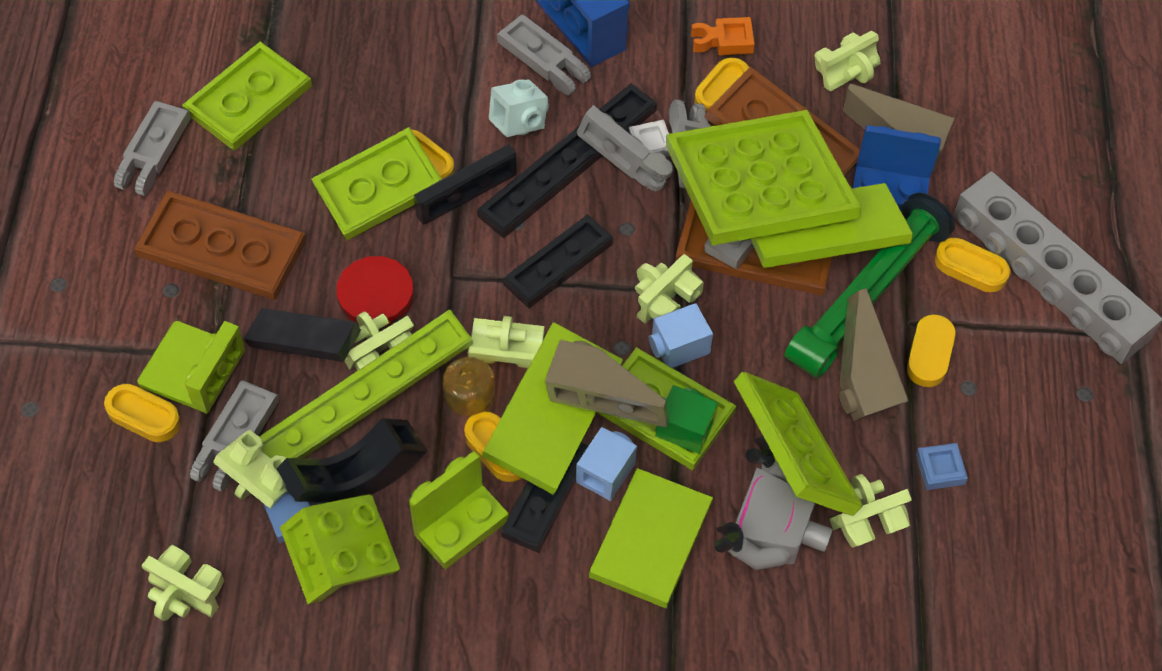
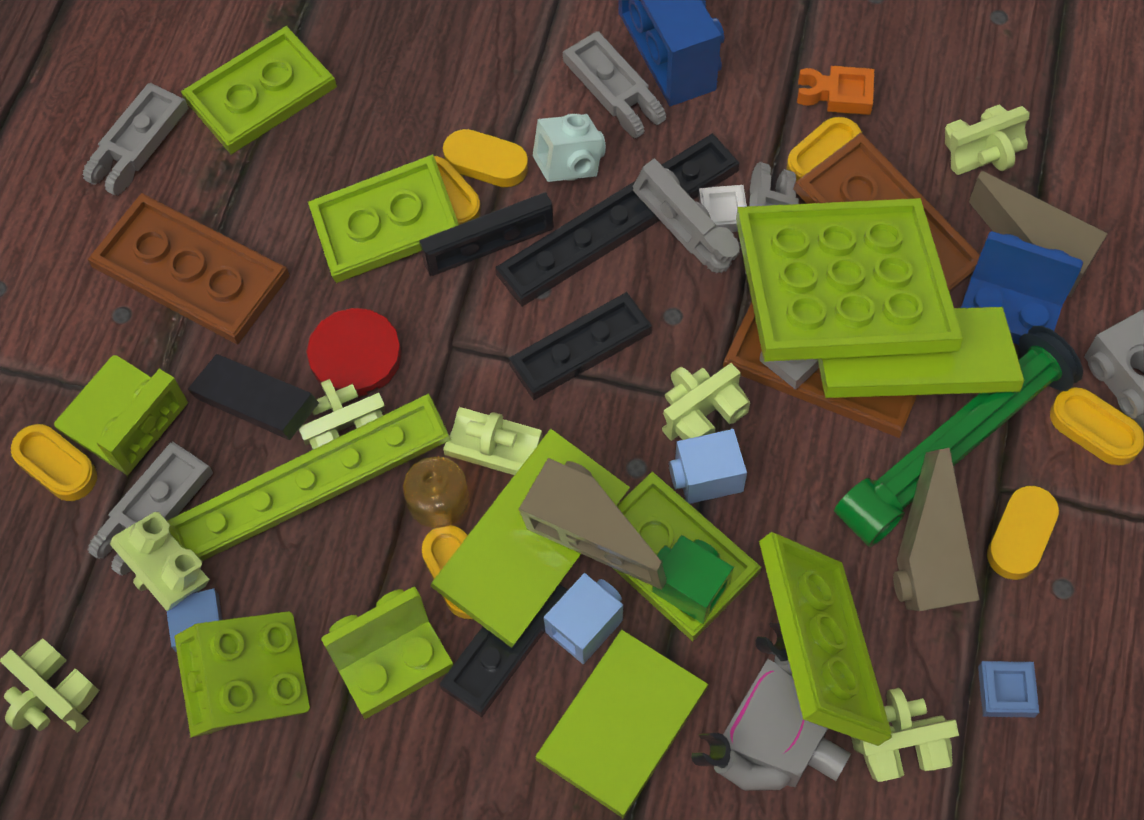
camera: 15 degrees right, 5 degrees up
(361, 470) = (278, 581): black arch -> none
(450, 125) = (486, 158): none -> yellow tile

